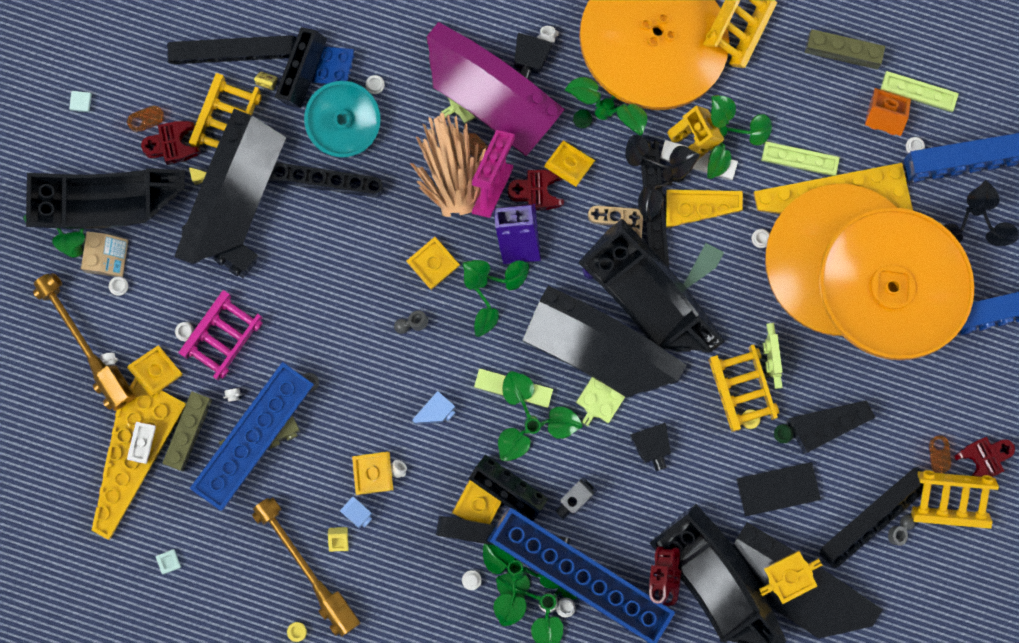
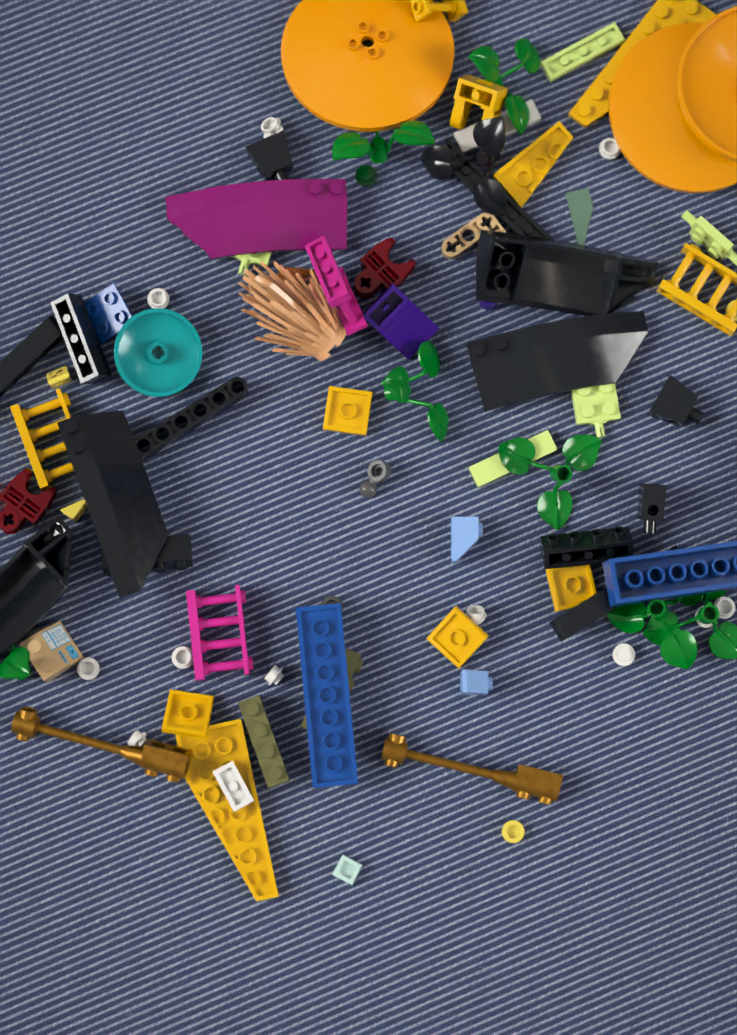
camera: 40 degrees left, 0 degrees up
(338, 539) = (477, 720): light yellow slope -> none
(569, 163) = (390, 223): yellow plate -> none

